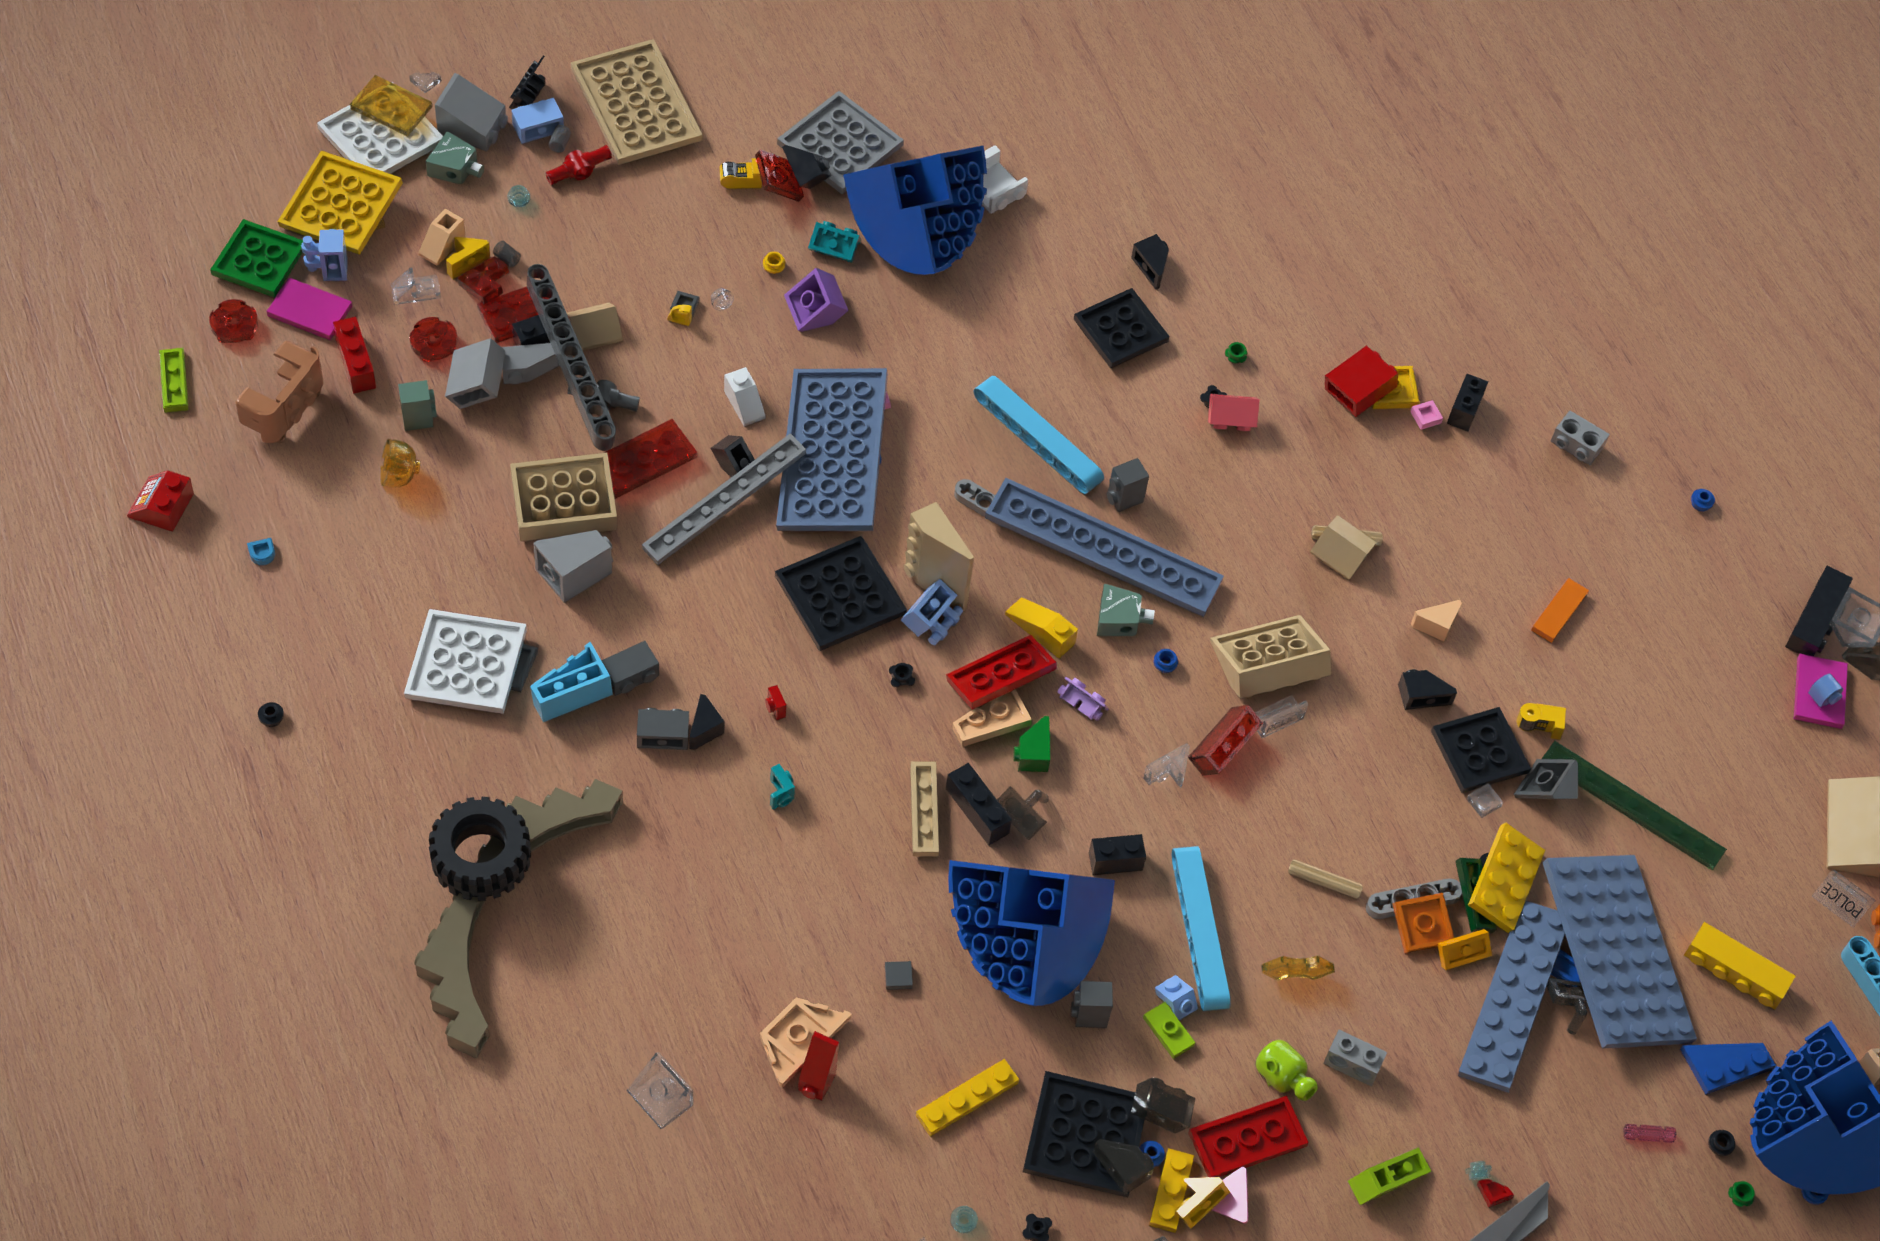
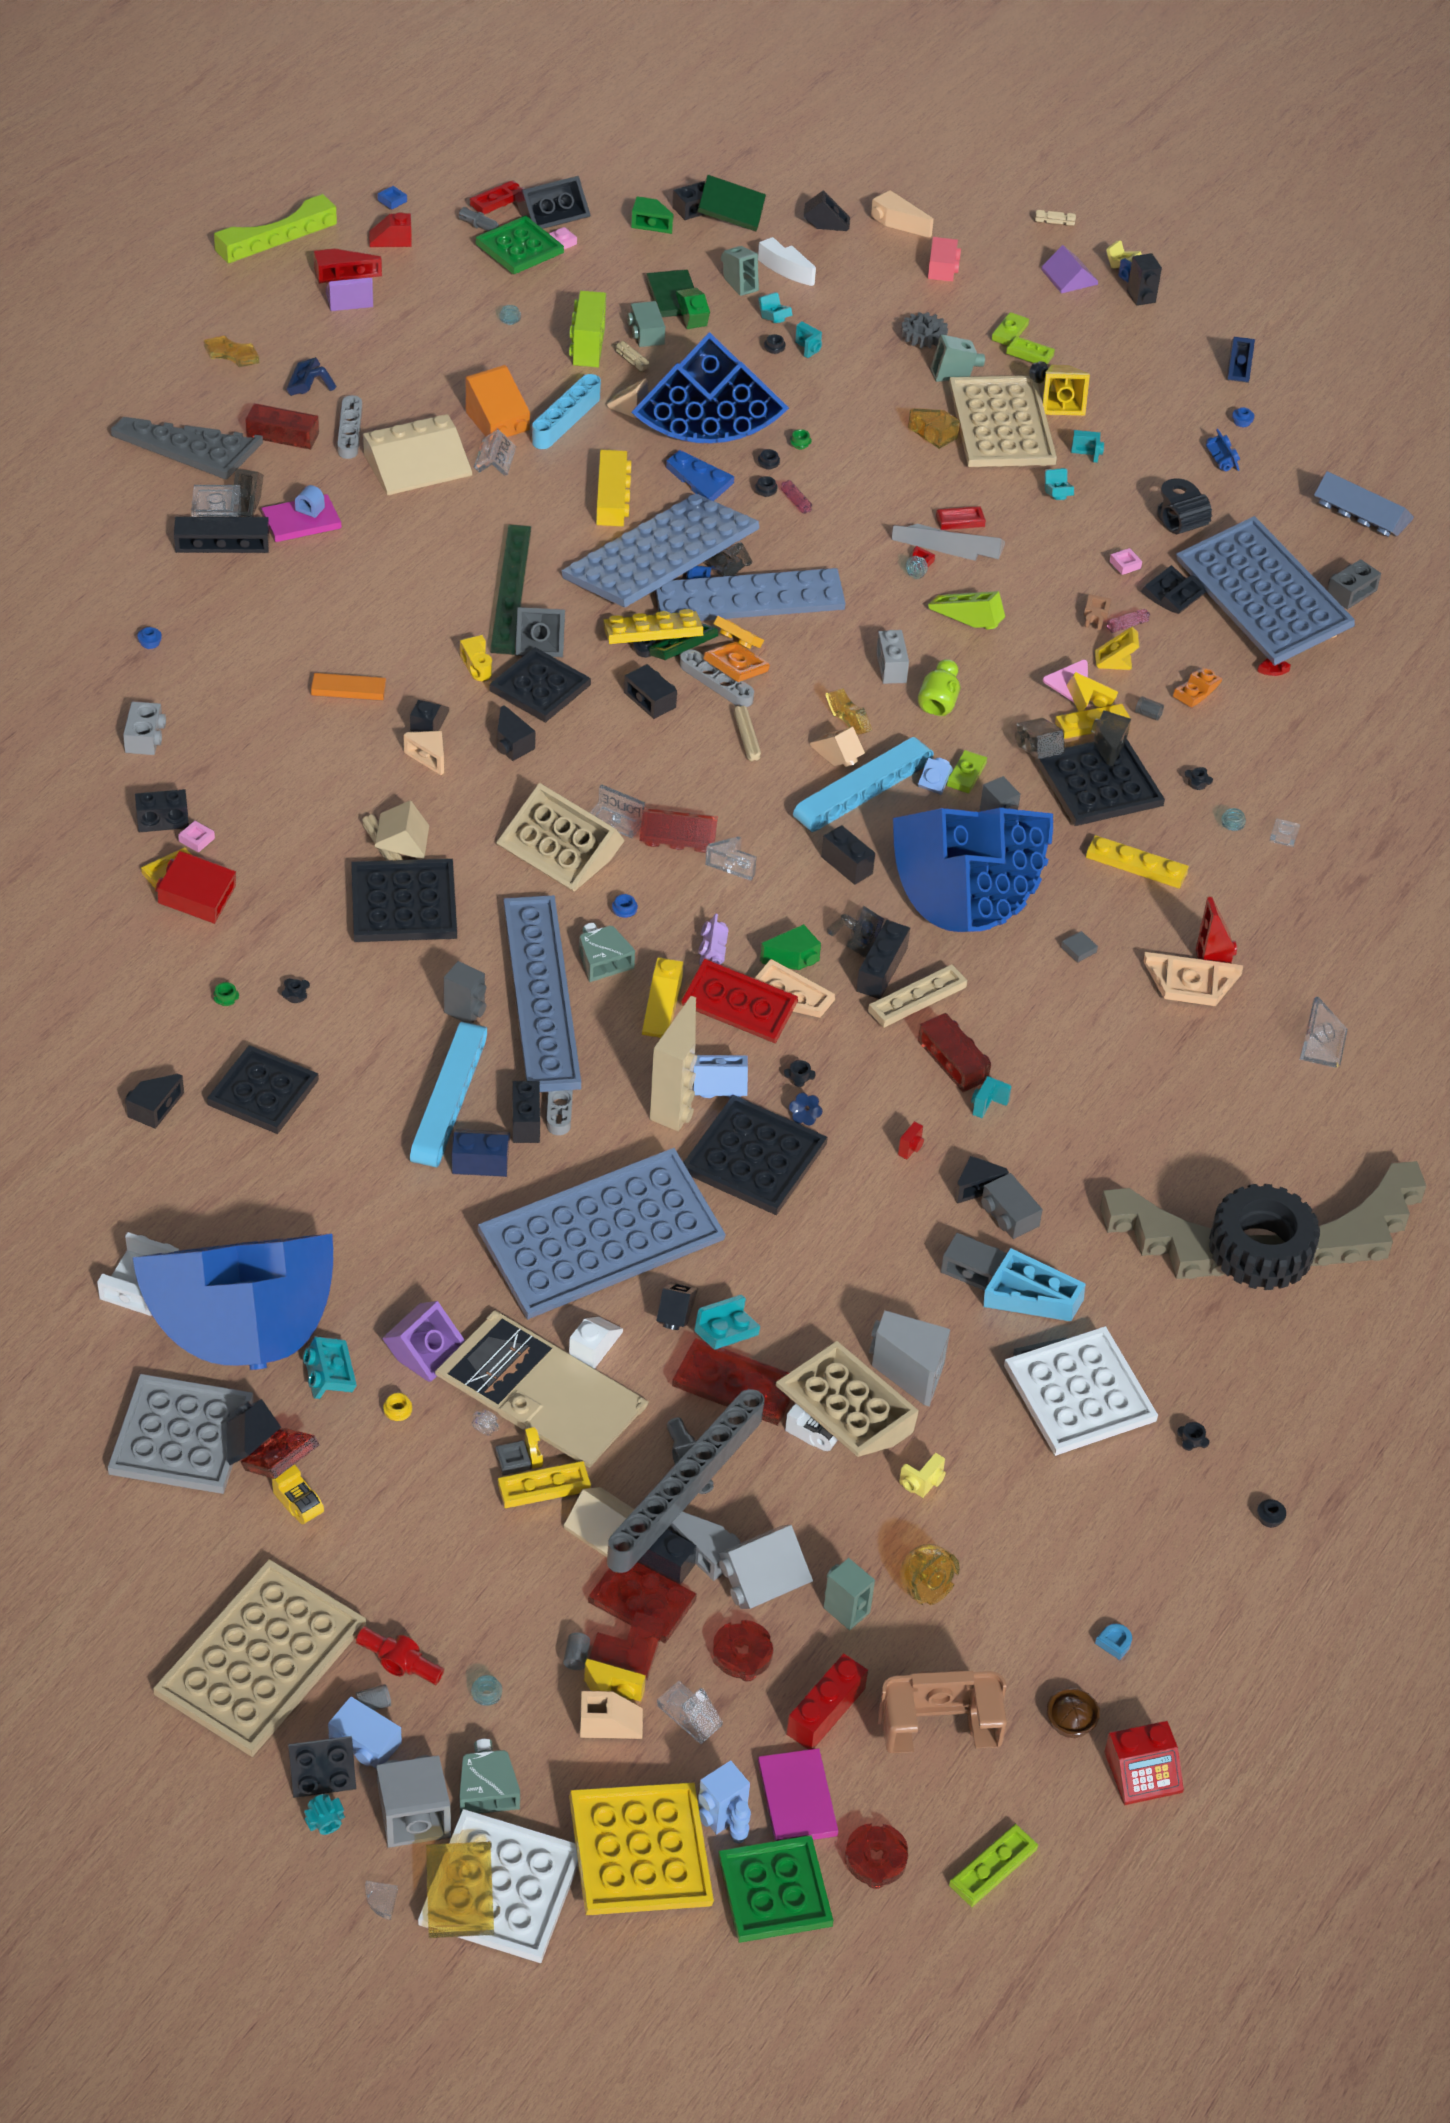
camera: 120 degrees left, 10 degrees down
(230, 486) = (1073, 1712): none -> reddish brown hat
(372, 704) = (1191, 1430): none -> black plate
(473, 512) = (923, 1480): none -> light yellow bracket
(498, 74) = (324, 1814): none -> teal gear
(646, 305) = (543, 1484): none -> yellow plate
(693, 476) = (725, 1323): none -> teal bracket
(700, 352) = (542, 1388): none -> tan door
(723, 499) = (732, 1283): light grey plate -> none
(844, 793) = (954, 1052): none -> clear red brick
(861, 654) = (800, 1111): none -> dark blue plant
(970, 424) = (480, 1152): none -> dark blue slope
(983, 467) = (526, 1111): none -> black brick
(1155, 1146) = (1076, 738): blue plate -> none
(1233, 411) = (308, 960): coral brick -> none
(1248, 1137) = (1011, 692): red plate -> none
(1259, 934) = (839, 747): none -> light nougat slope
(1268, 513) = (403, 900): none -> black plate
(1421, 828) = (650, 691): none -> black brick
(1483, 642) = (427, 716): none -> black slope
(1484, 800) = (589, 665): clear plate -> none
(1681, 1107) = (766, 486): none -> black plate

